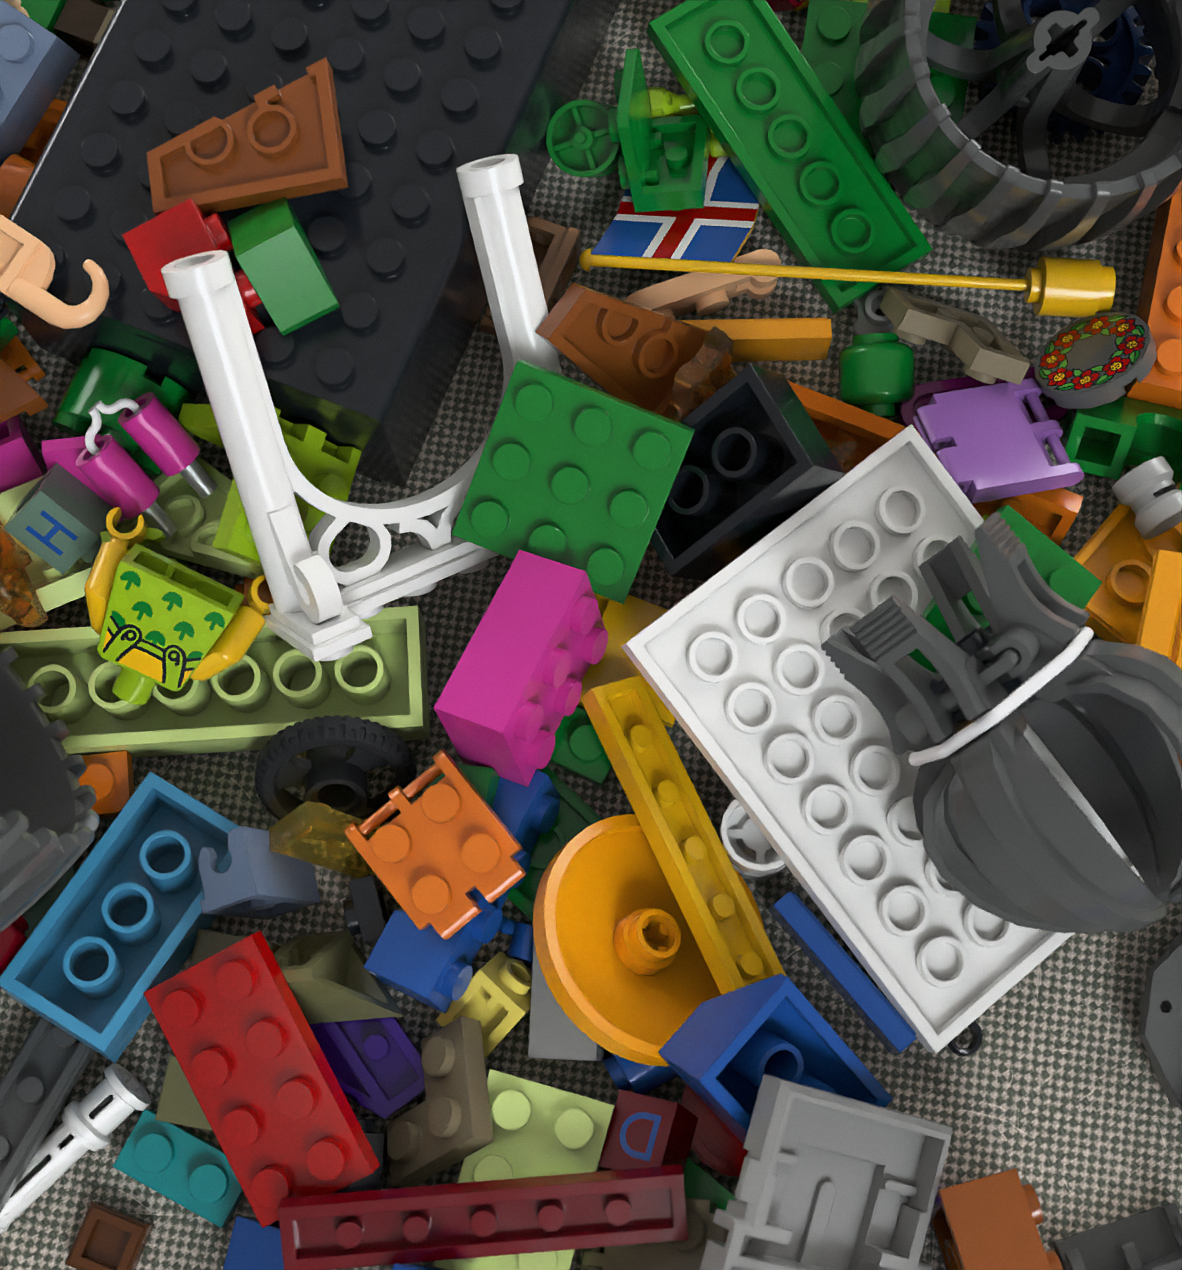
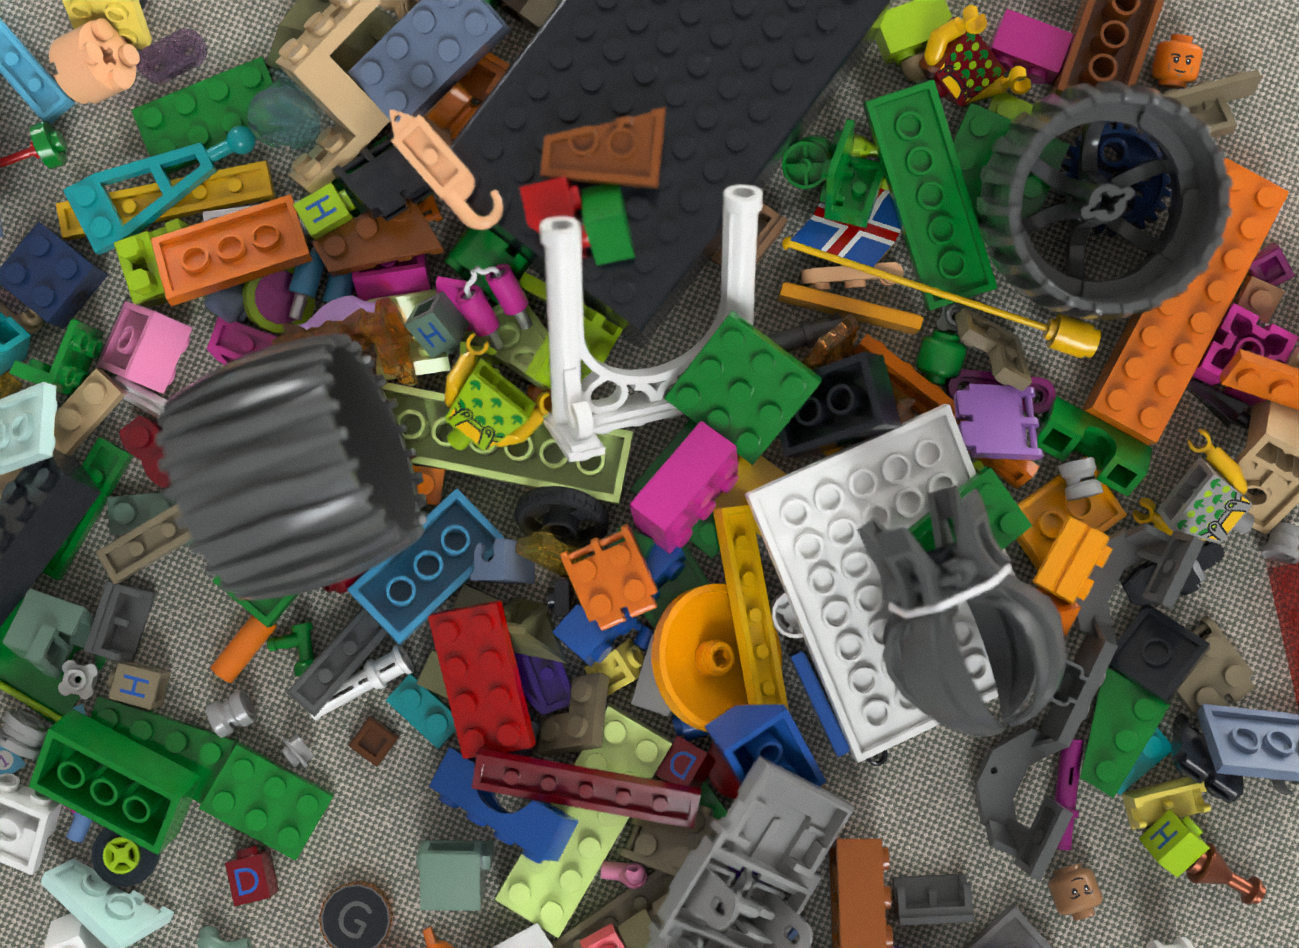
camera: 10 degrees right, 10 degrees up
(621, 345) = (796, 311): dark orange wing -> none
(1095, 360) = (1071, 388): tile -> none

